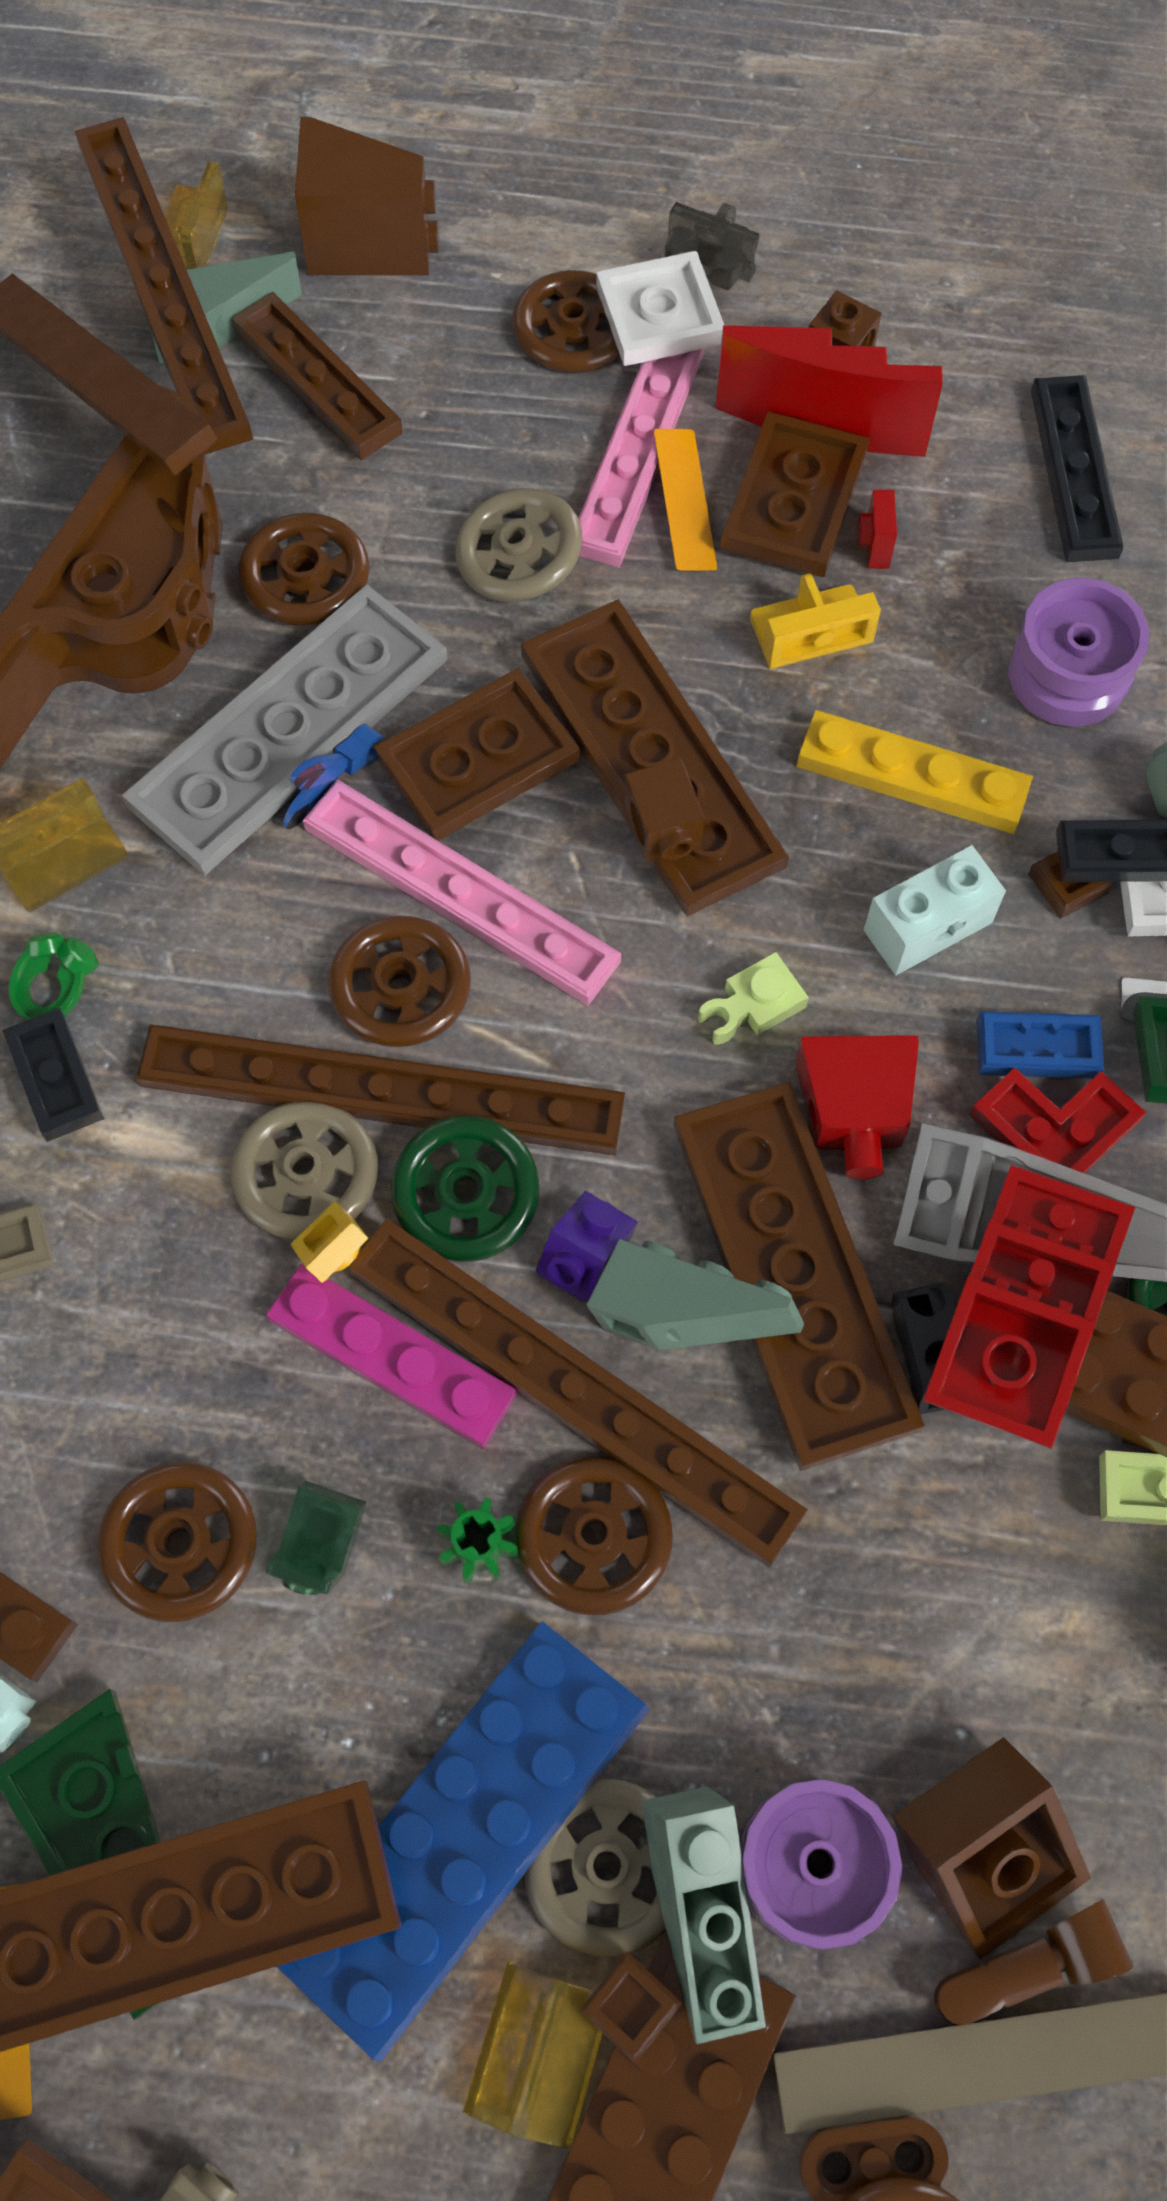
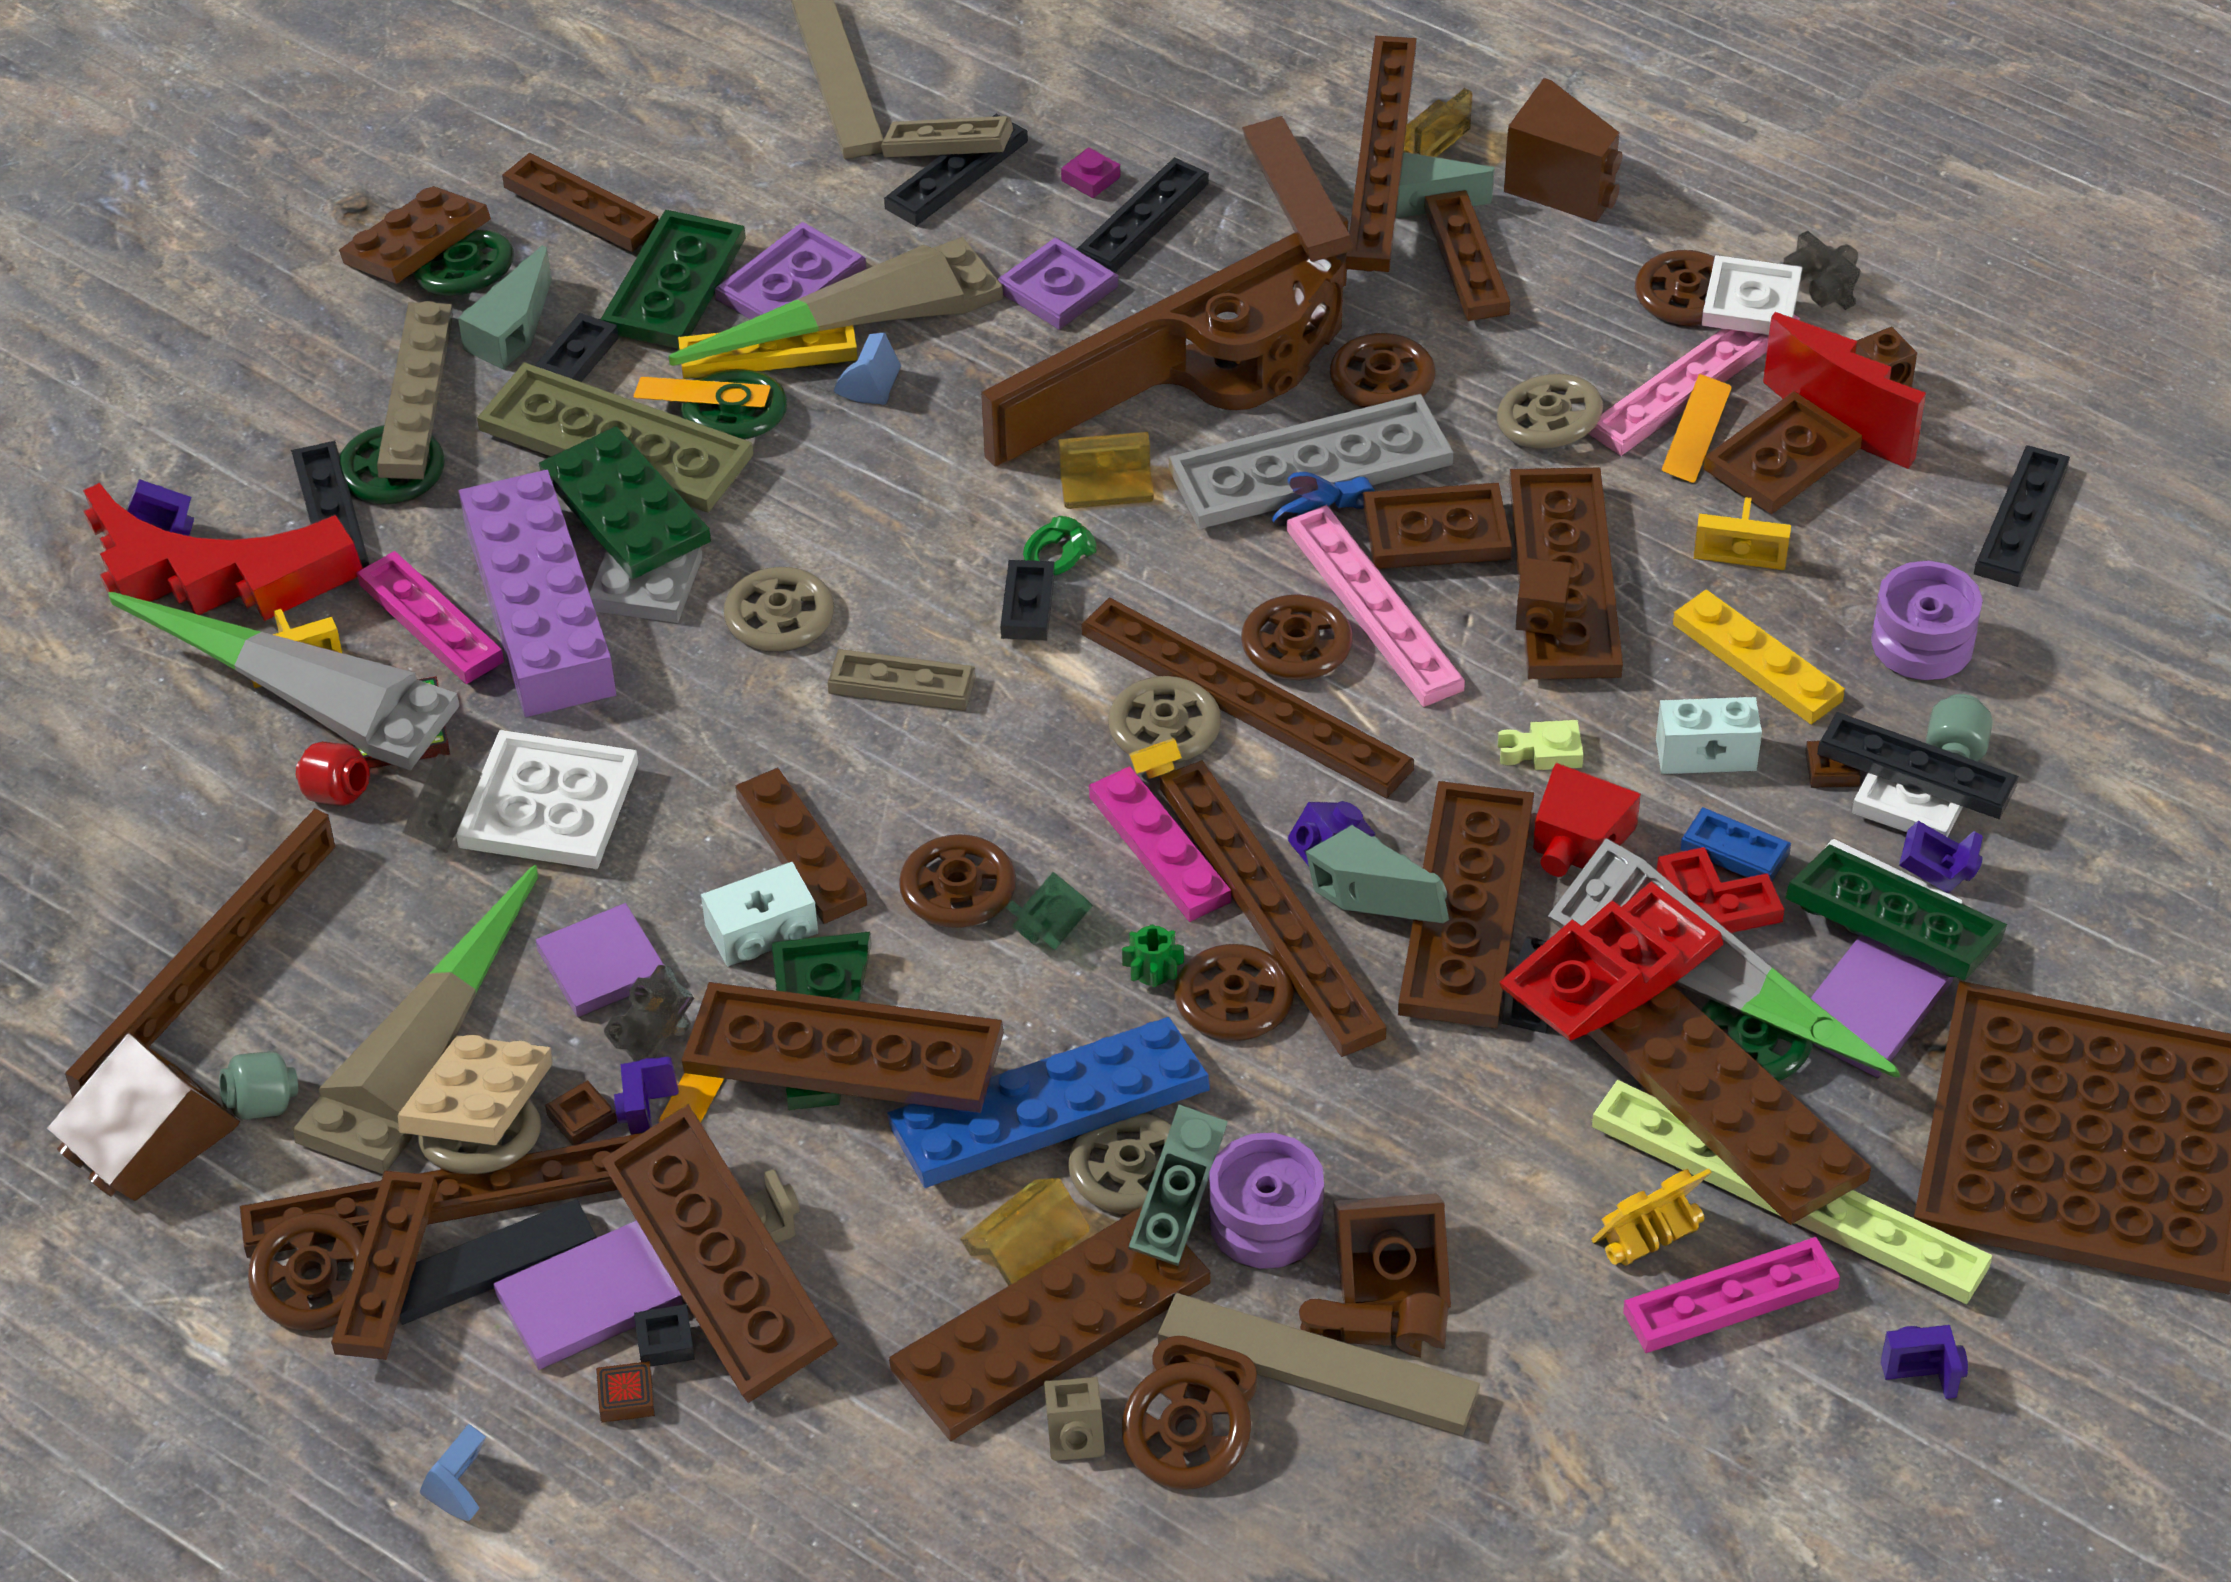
camera: 30 degrees right, 20 degrees down
(467, 1136) = (1286, 738): dark green plate -> none
(631, 2007) = (1099, 1218): reddish brown tile -> none
(879, 529) = (1830, 495): red plate -> none

